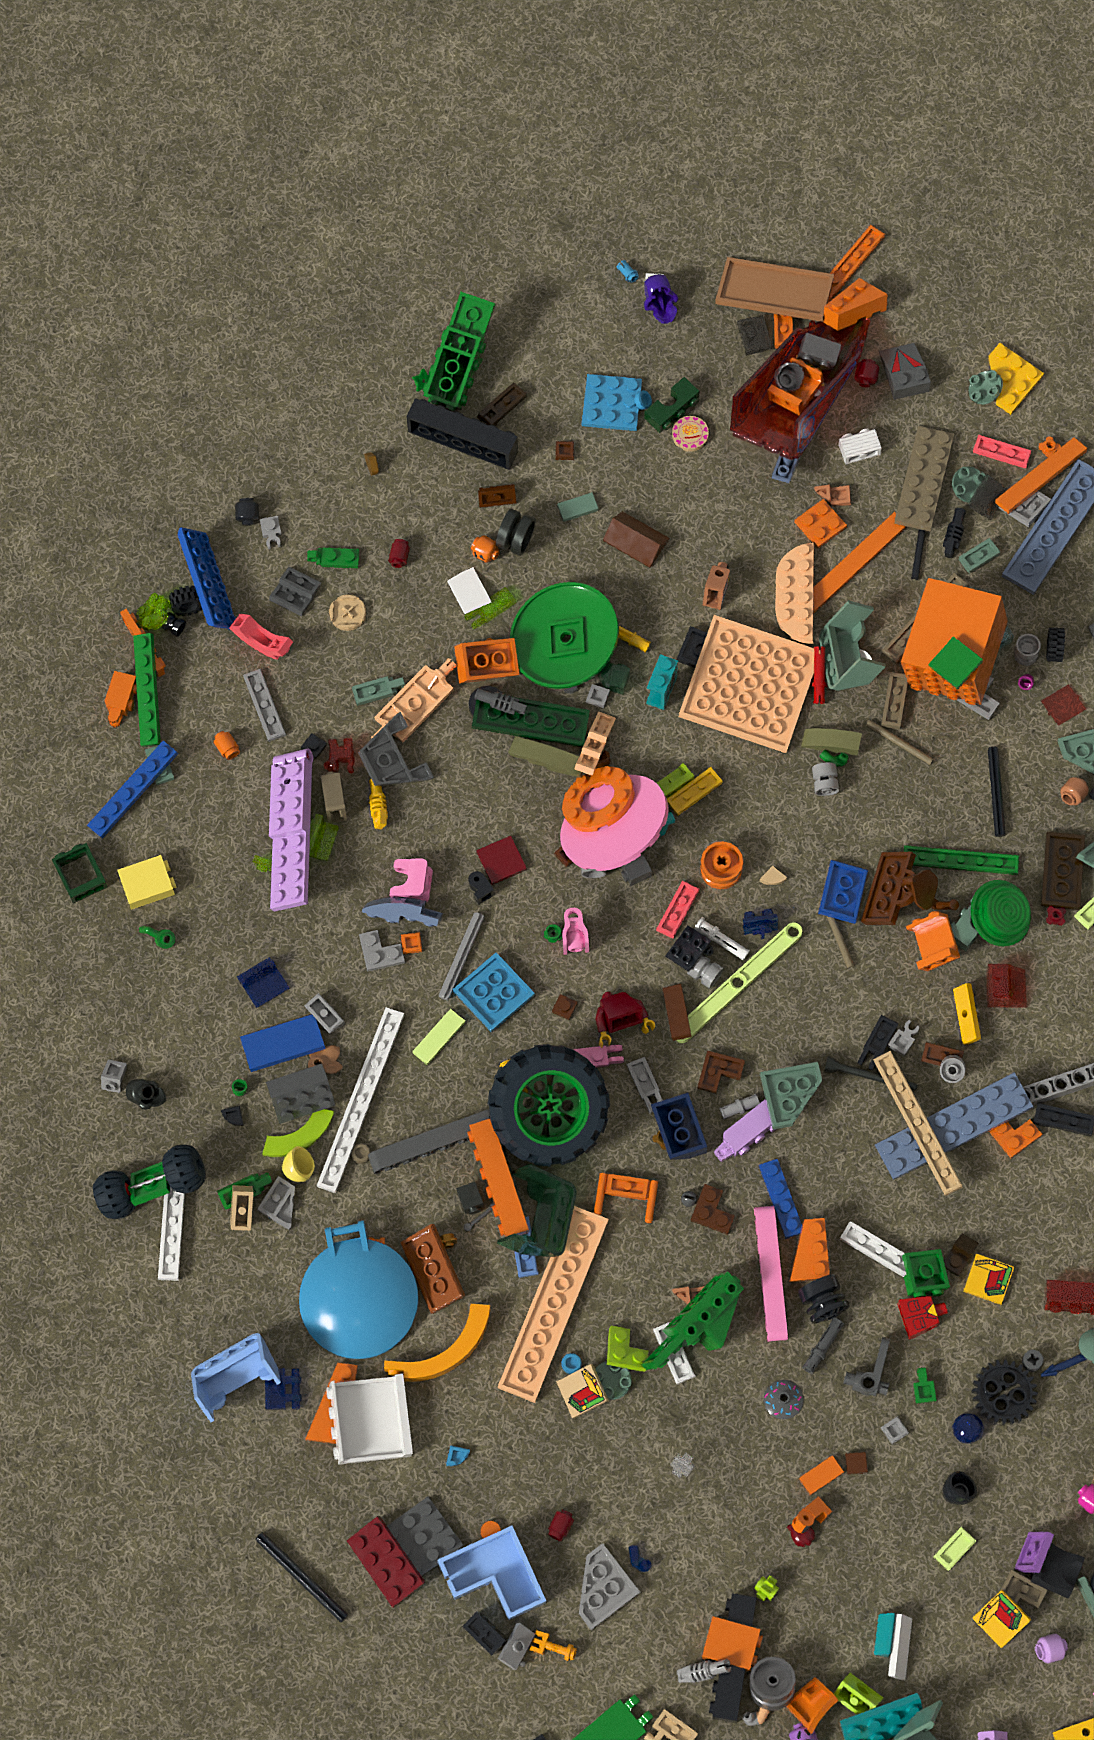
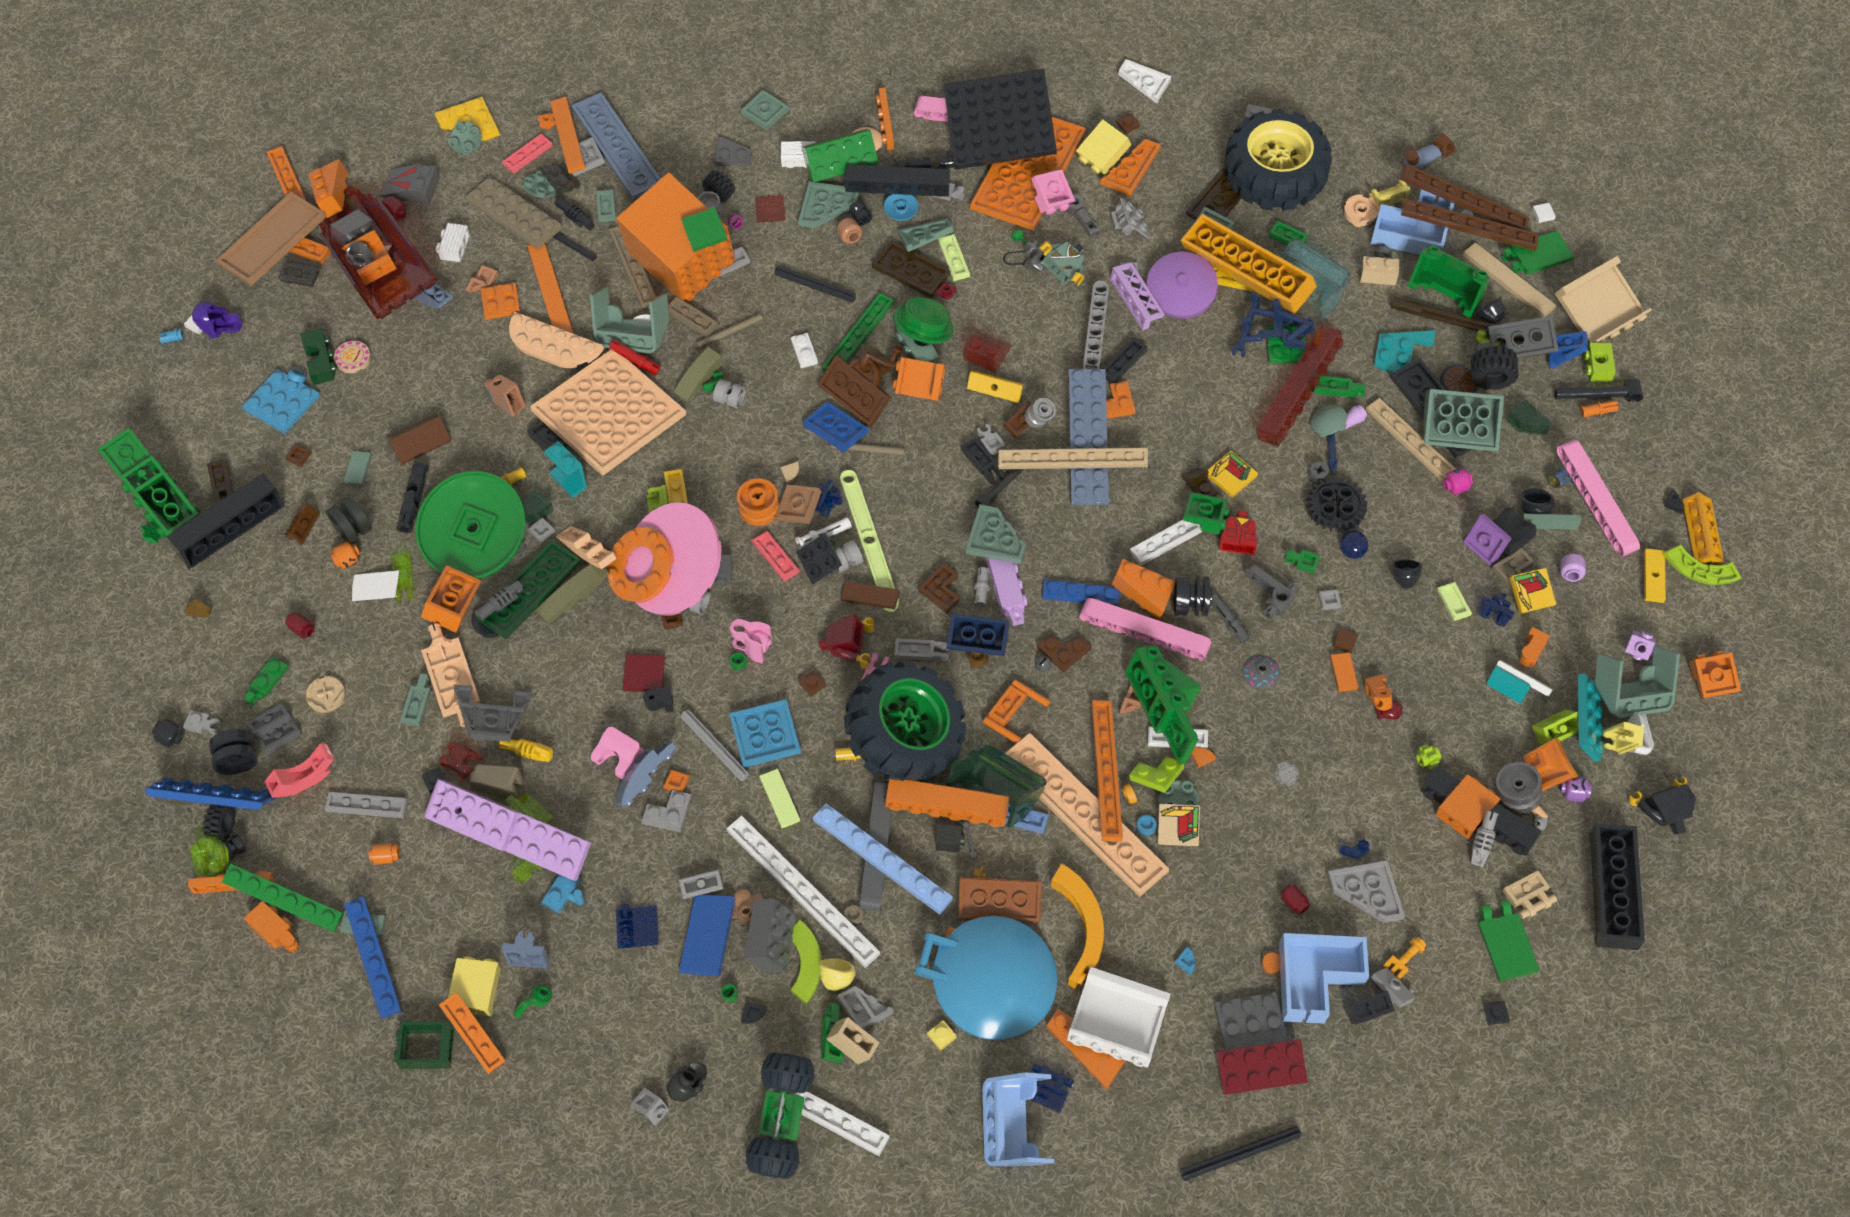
camera: 65 degrees left, 10 degrees down
(104, 903) = (472, 1032): none -> orange plate
(193, 906) = (526, 953): none -> sand blue piece
(252, 573) = (233, 752): none -> black wheel
(260, 905) = (561, 892): none -> dark azure plate
(287, 1279) = (941, 1035): none -> light yellow plate
(418, 1151) = (883, 859): none -> light blue plate
(567, 571) = (411, 499): none -> black piece
(592, 1334) = (1129, 794): none -> light orange tile
(603, 1303) = (1106, 771): none -> orange plate
(665, 1382) = (1202, 756): none -> orange tile
(738, 901) = (798, 504): none -> medium nougat plate
(914, 820) = (804, 350): none -> white plate
(939, 1645) = (1532, 651): none -> orange leg
(967, 1591) = (1488, 606): none -> clear blue hips

